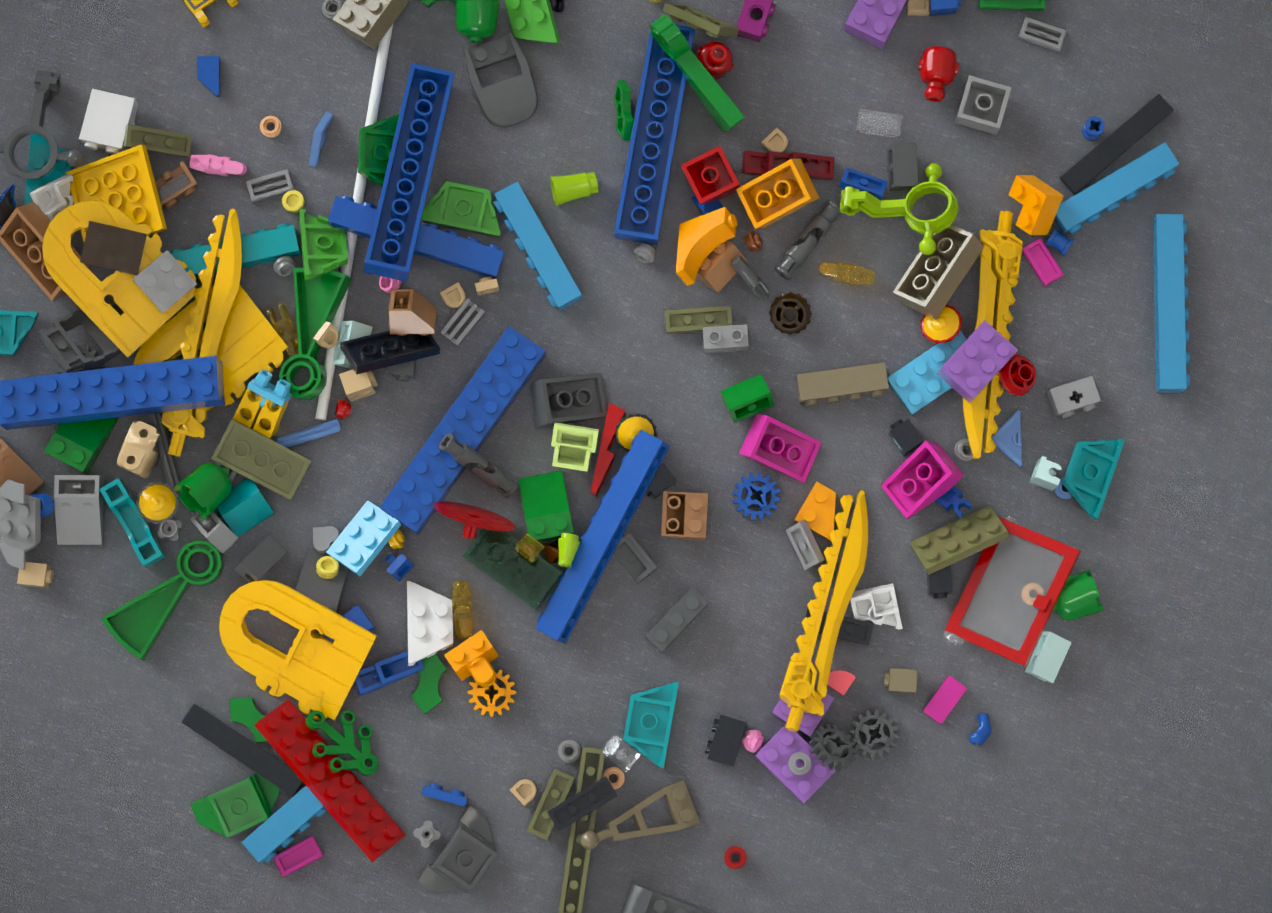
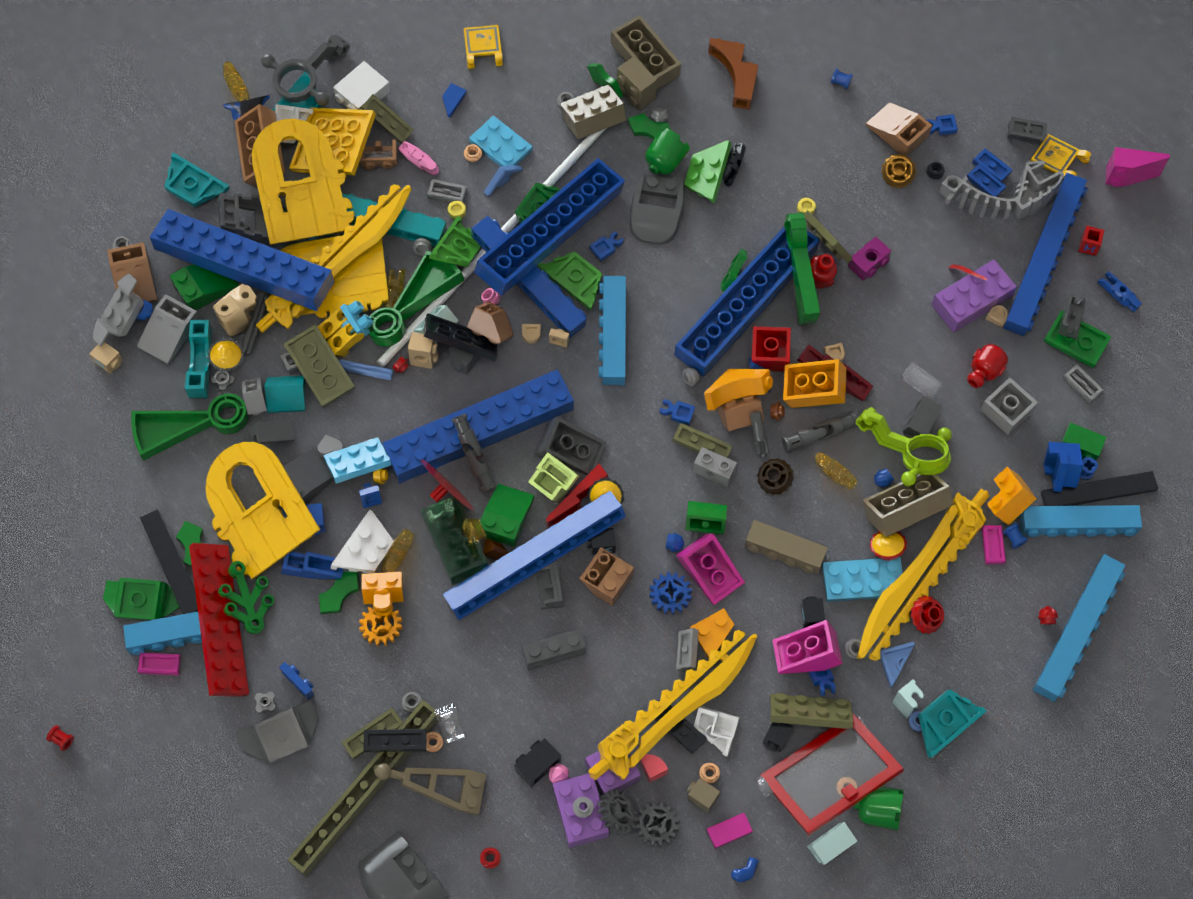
camera: 25 degrees right, 15 degrees down
(113, 248) = (307, 163): dark brown window -> none
(164, 281) = (328, 205): light grey brick -> none
(204, 489) = (265, 362): green cylinder -> none
(293, 98) = (500, 143): none -> medium azure plate
(327, 336) = (421, 306): tan tile -> none
(327, 567) = (317, 466): light yellow tile -> none
(474, 158) = (605, 247): none -> blue plate
(474, 307) = (522, 348): light grey tile -> none
(524, 791) = (359, 713): tan tile -> none
(567, 547) = (502, 547): lime cone -> none
(573, 187) = (664, 303): lime plant -> none
(650, 721) = (488, 715): teal wing -> none
(658, 298) = (680, 412): none -> blue plate
(730, 441) = (674, 542): none -> blue plate
(863, 182) = (891, 418): blue plate -> none
(887, 654) = (712, 767): none -> light nougat plate
(898, 254) = (883, 478): none -> blue plate
(977, 361) = (900, 582): medium lavender brick -> none
(1069, 138) = (1064, 464): none -> blue plate
(1075, 103) = (1090, 442): none -> green brick
(1082, 388) = (973, 653): light grey brick -> none
(1133, 309) = (1047, 615): none -> red plate

